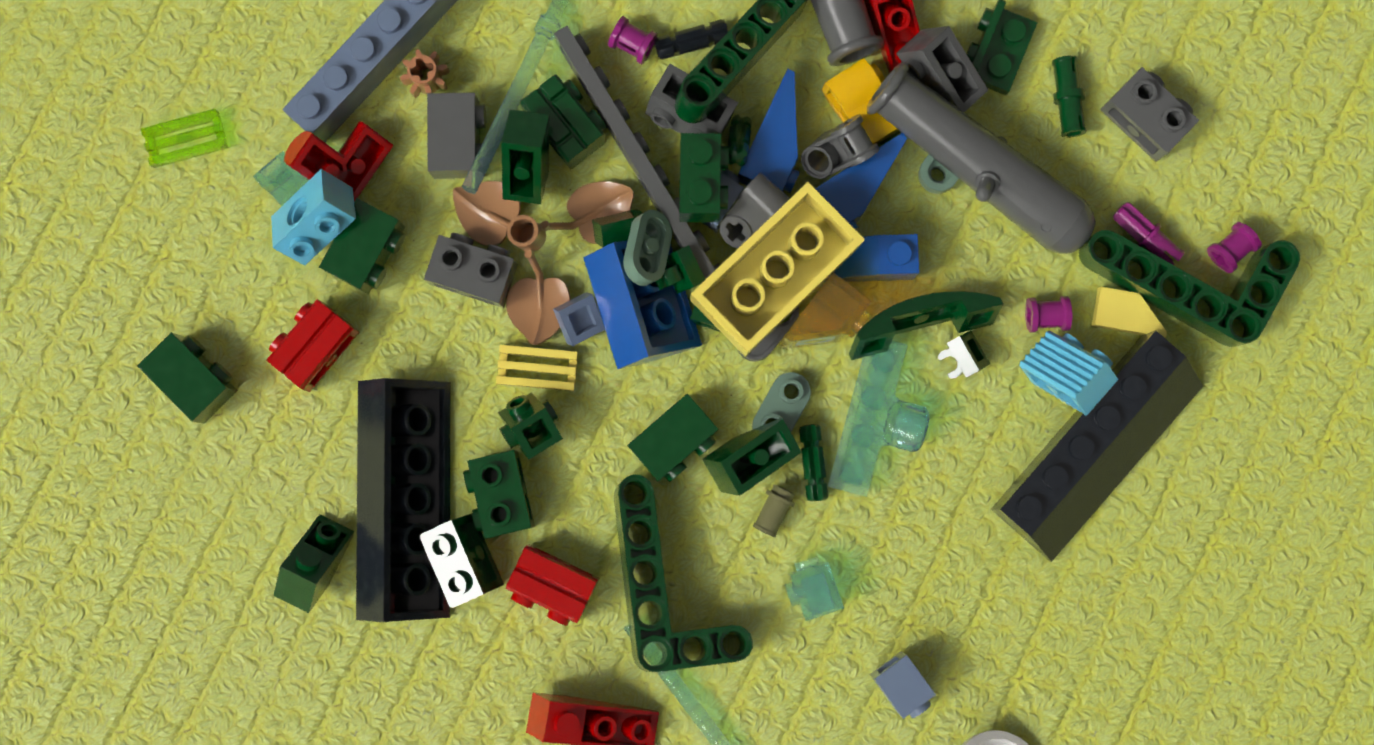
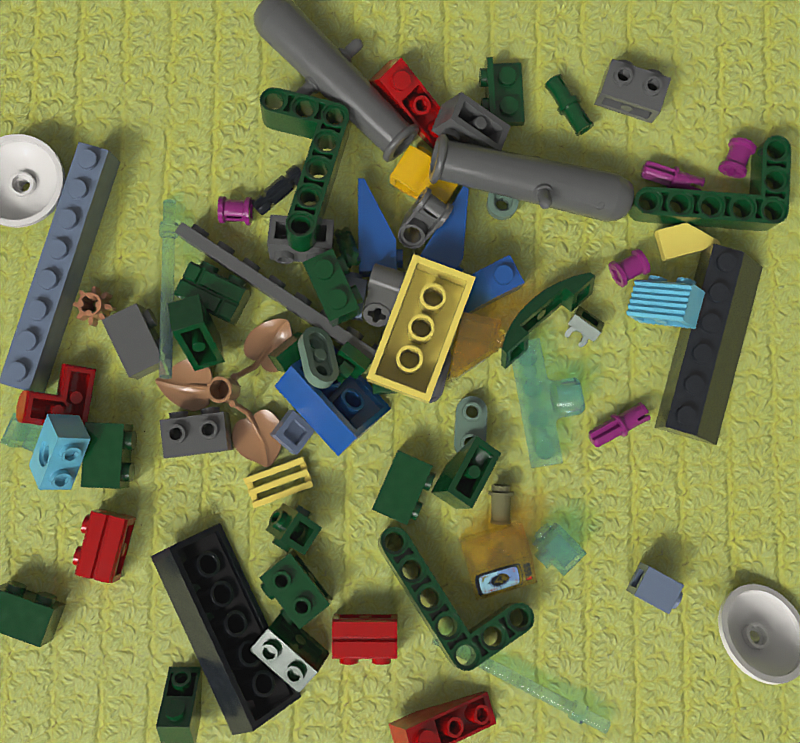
camera: 25 degrees left, 0 degrees up
(741, 572) = (498, 560): none -> clear yellow slope
(813, 462) = (512, 455): dark green axle -> none
(950, 486) = (619, 425): none -> magenta axle

